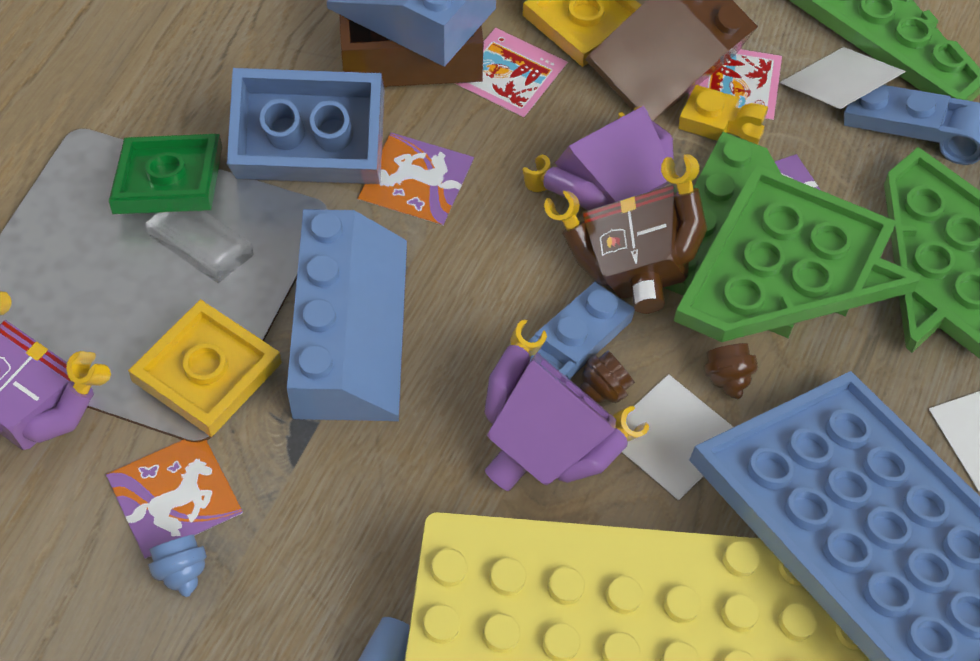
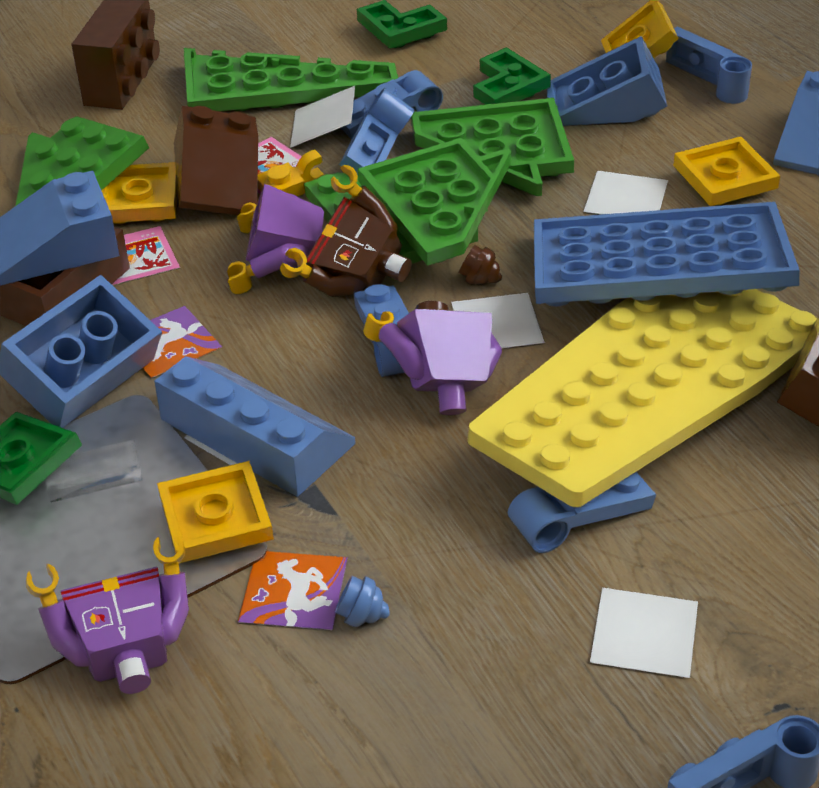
camera: 50 degrees left, 15 degrees down
(846, 143) = (377, 131): none -> medium blue plate

